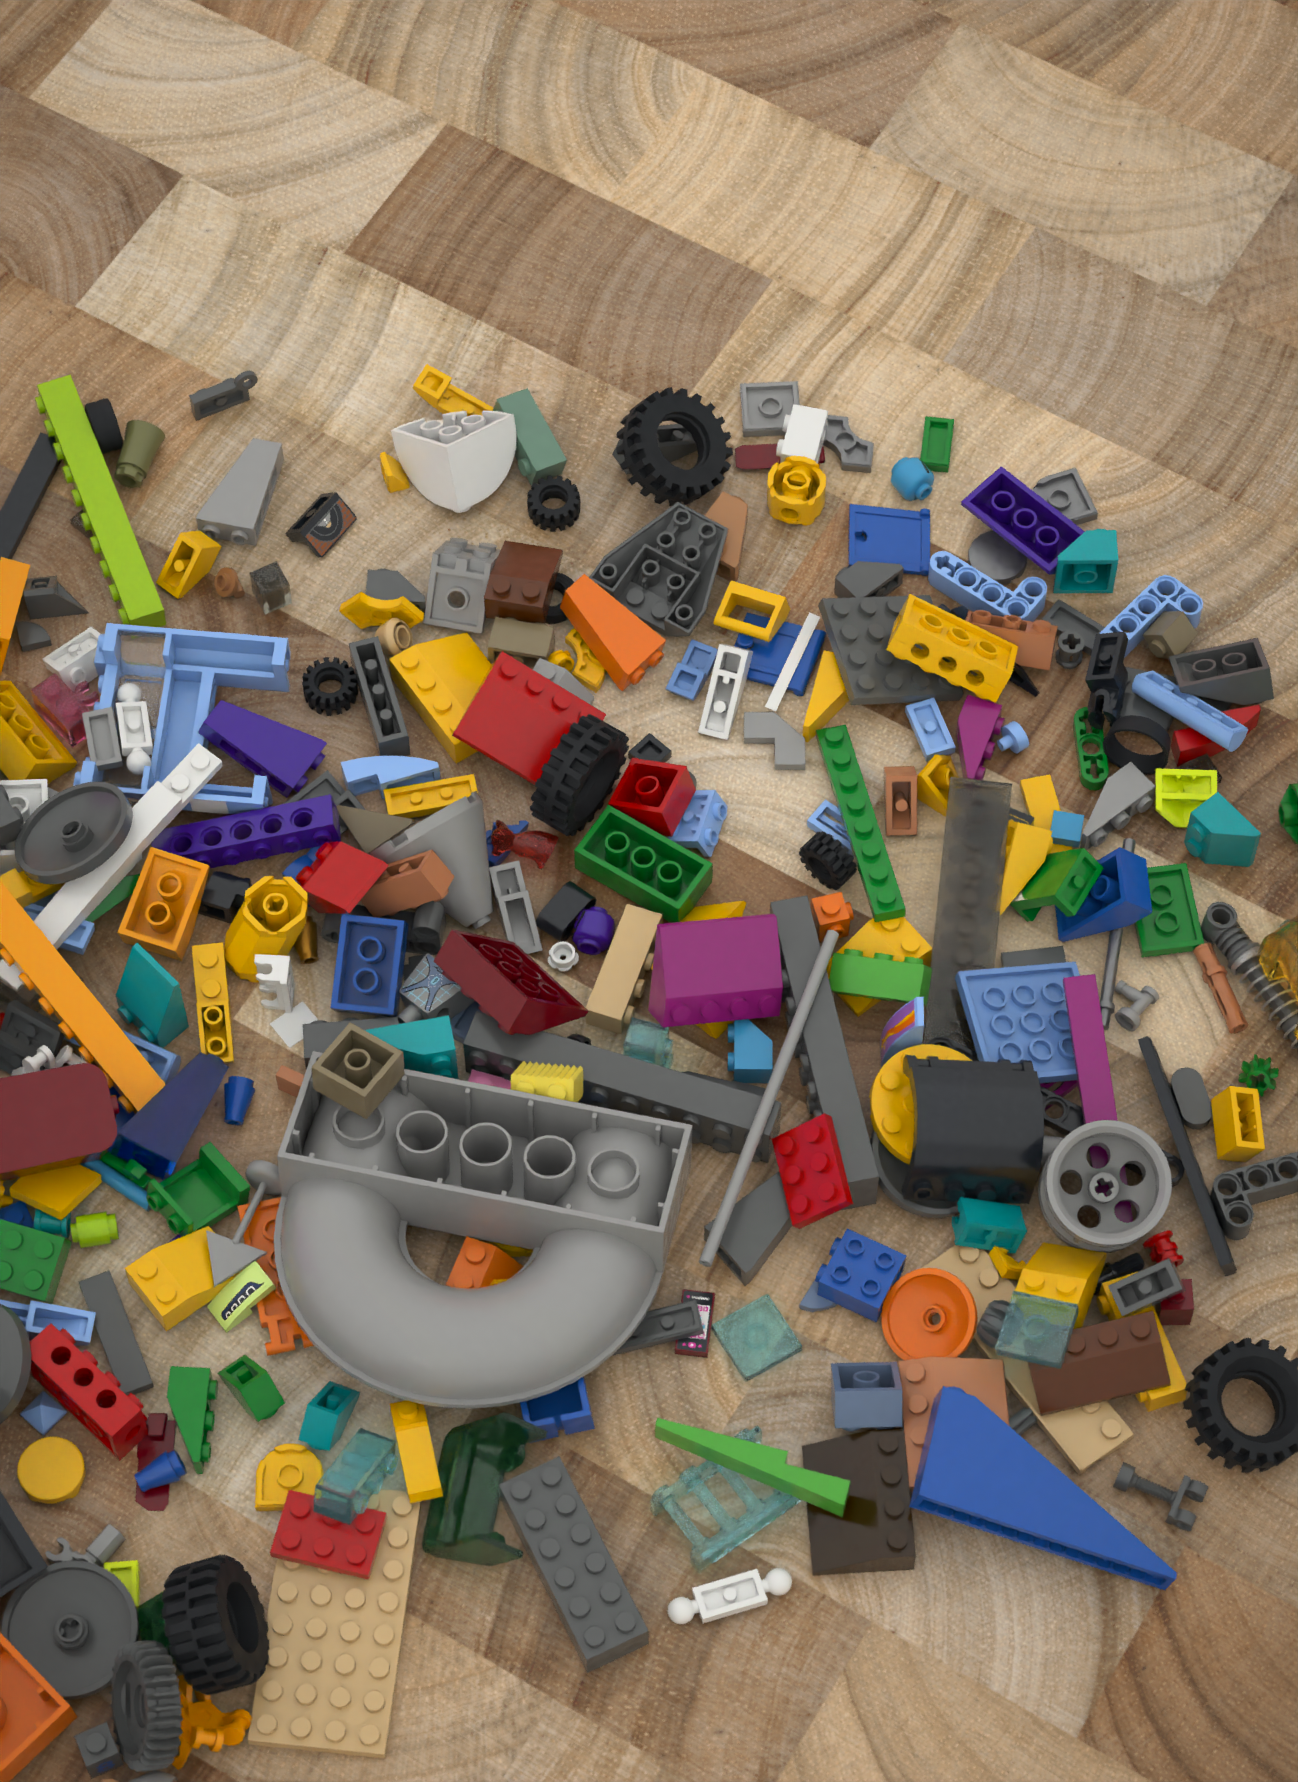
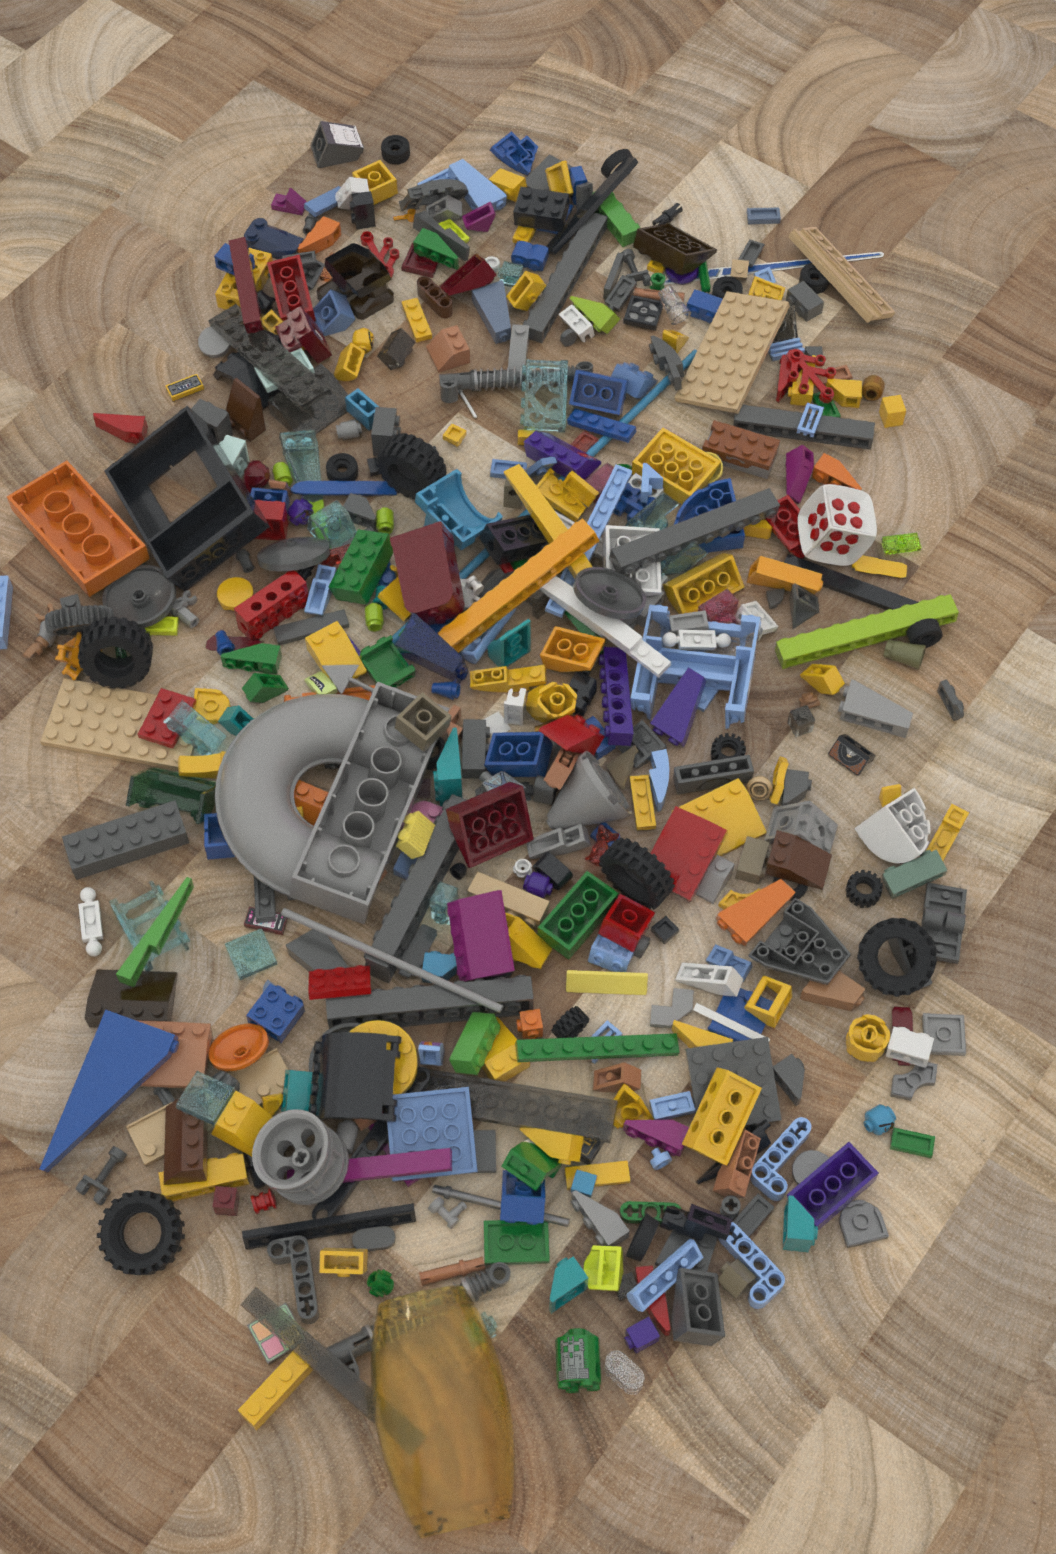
camera: 95 degrees right, 0 degrees up
(562, 659) = (737, 882): yellow plate -> none
(591, 404) = (945, 919): none -> dark grey plate
(746, 827) = (606, 982): none -> light yellow slope
(866, 1395) = (192, 1001): sand blue brick -> none
(891, 537) = (830, 1099): blue container -> none
(1147, 1288) = (223, 1171): dark grey brick -> none
(1267, 744) = (641, 1335): none -> dark purple brick

